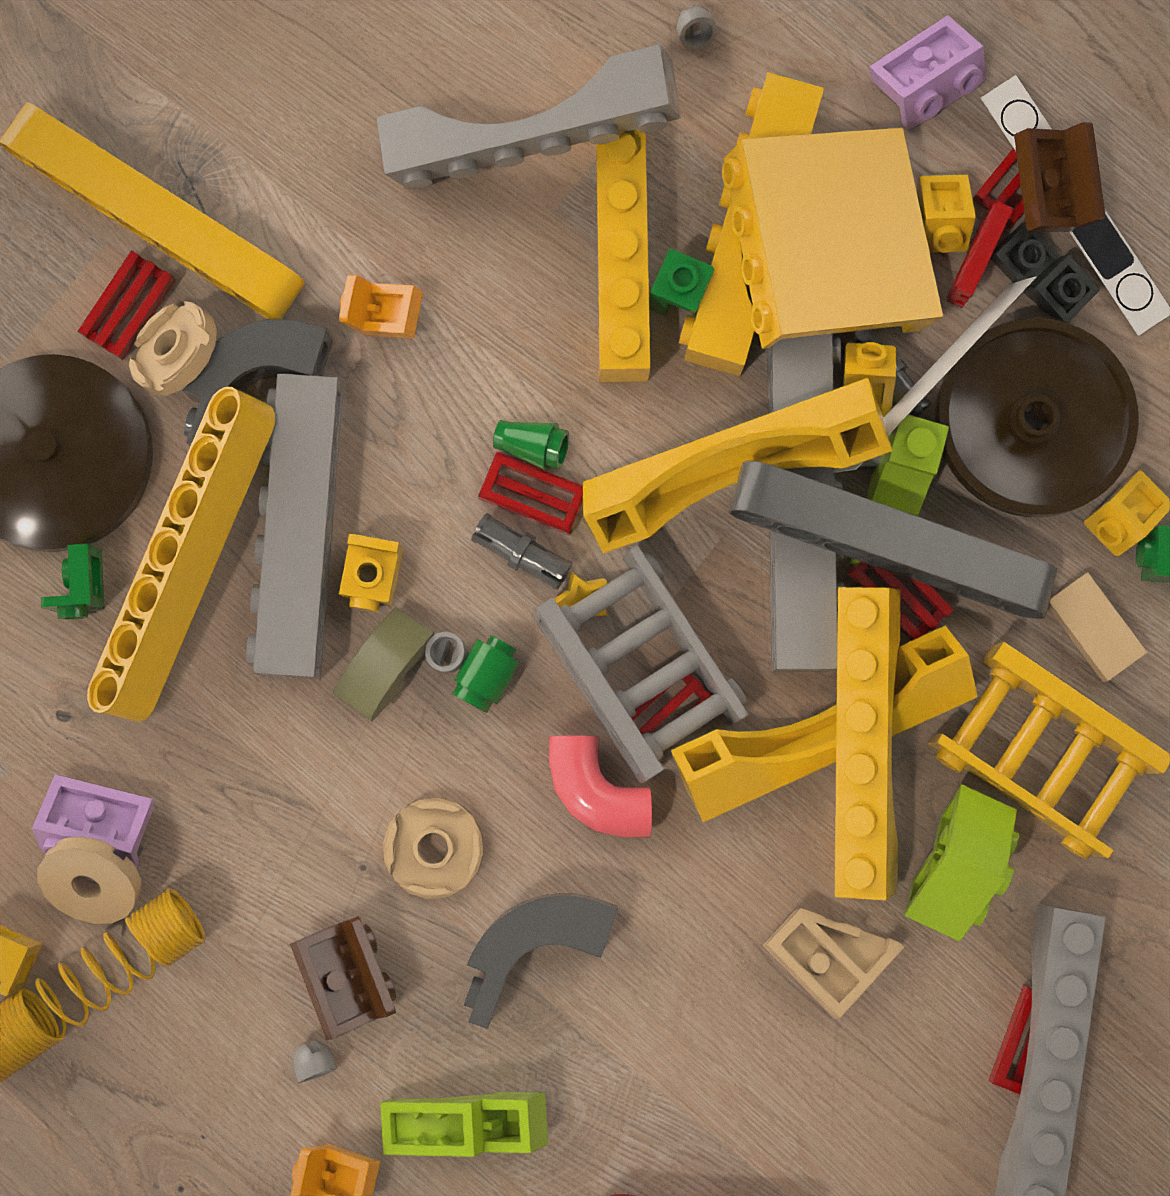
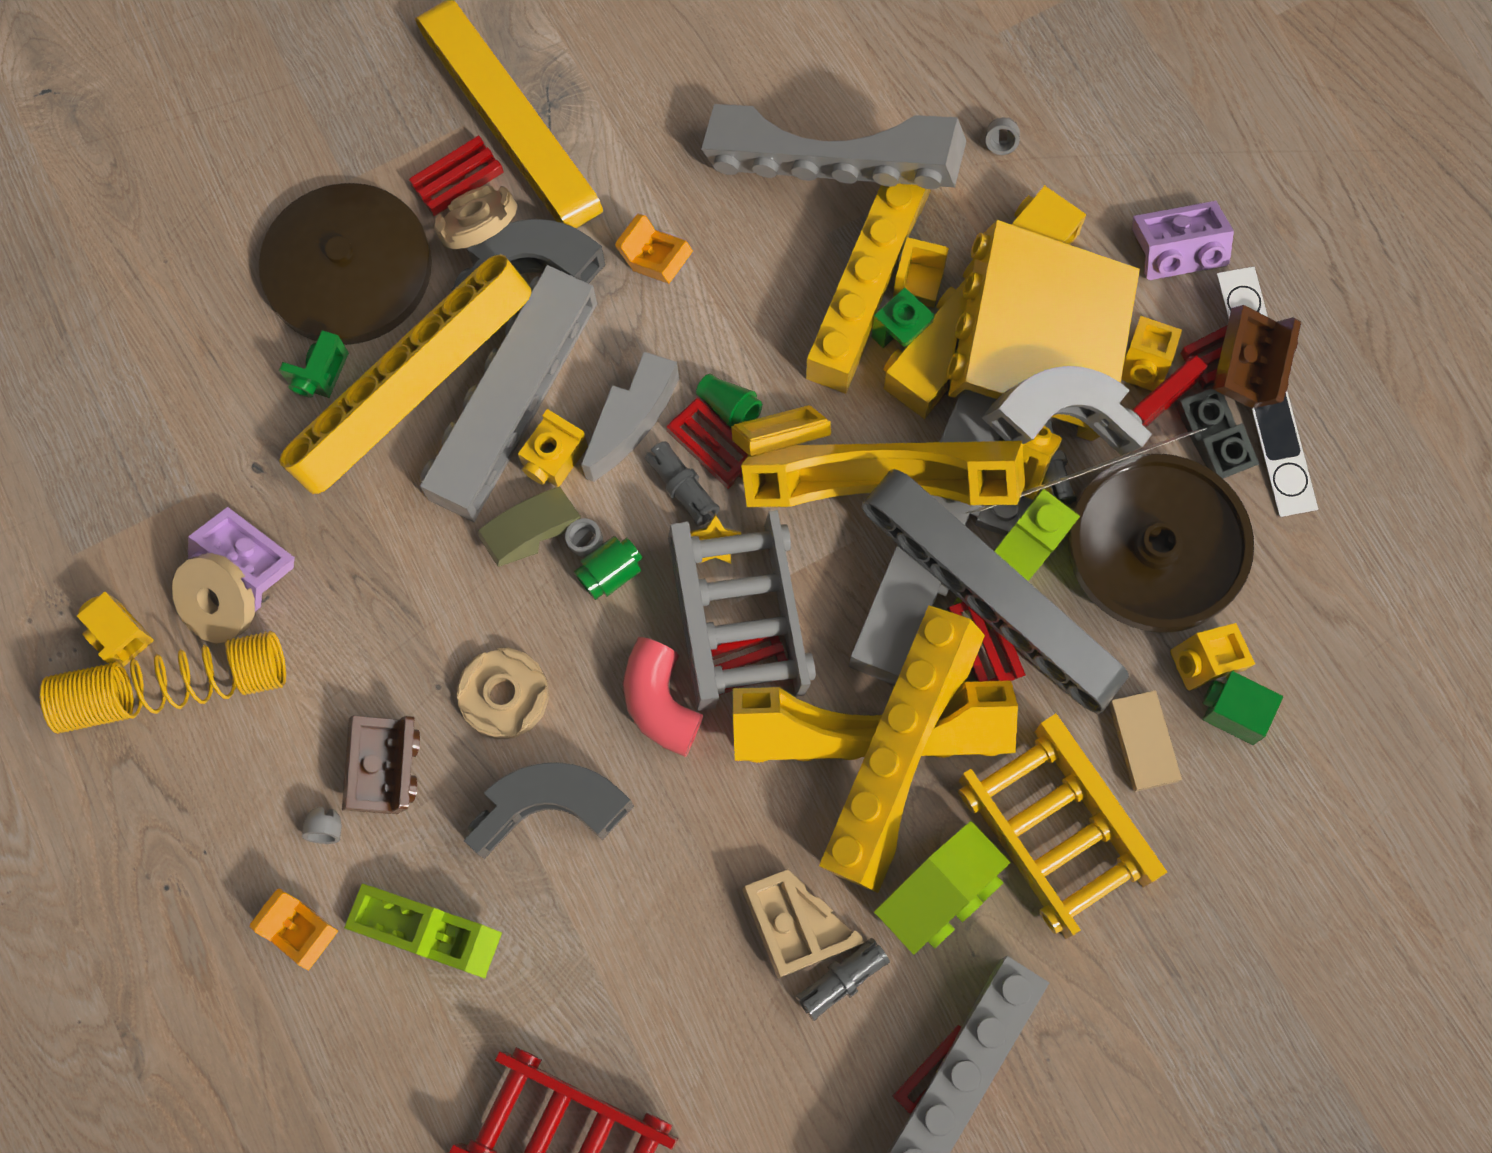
camera: 30 degrees right, 10 degrees down
(436, 499) = (630, 414): none -> light grey slope
(602, 455) = (780, 430): none -> yellow tile
(673, 219) = (921, 270): none -> yellow panel
(861, 326) = (1072, 392): none -> arch
(898, 991) = (842, 979): none -> dark grey pin

